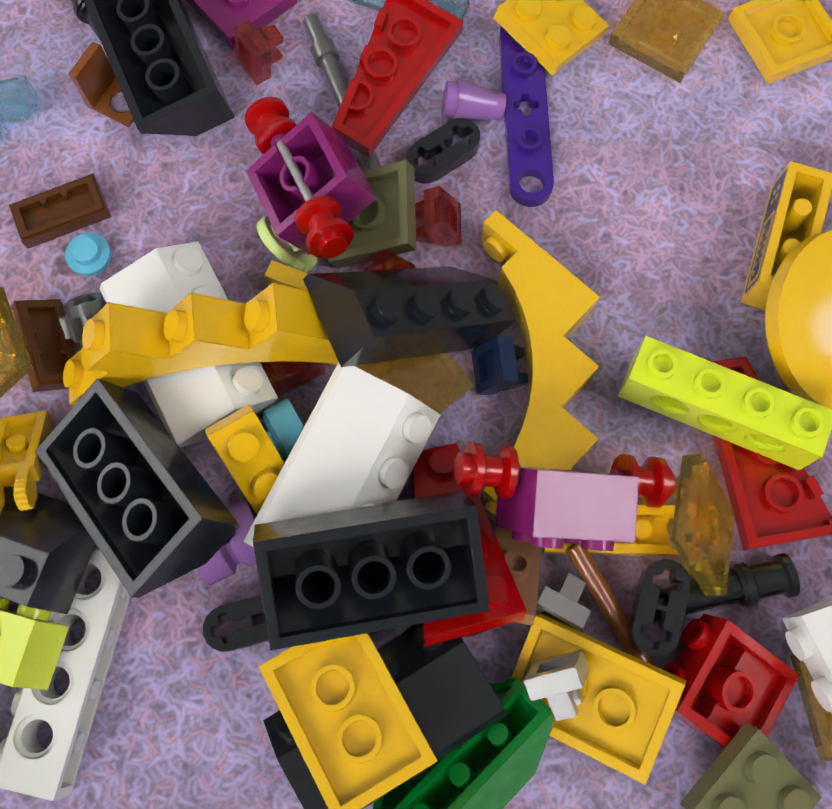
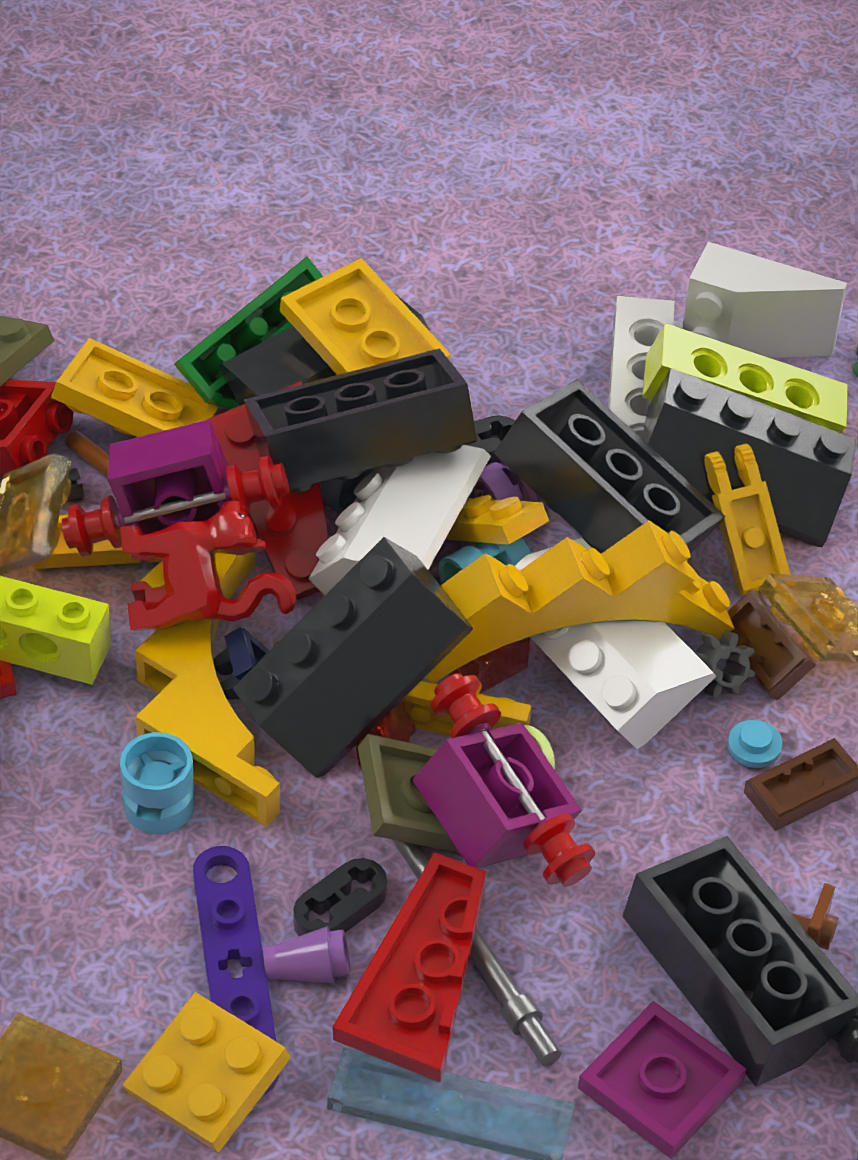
camera: 170 degrees right, 25 degrees down
(257, 49) = (611, 992): clear red tile -> none
(440, 217) = (333, 811): clear red tile -> none
(551, 405) = (191, 573): none -> red animal
(559, 682) = (174, 386): tile -> none
(583, 240) = (157, 782): none -> medium azure wheel
(671, 610) = (84, 461): black beam -> none

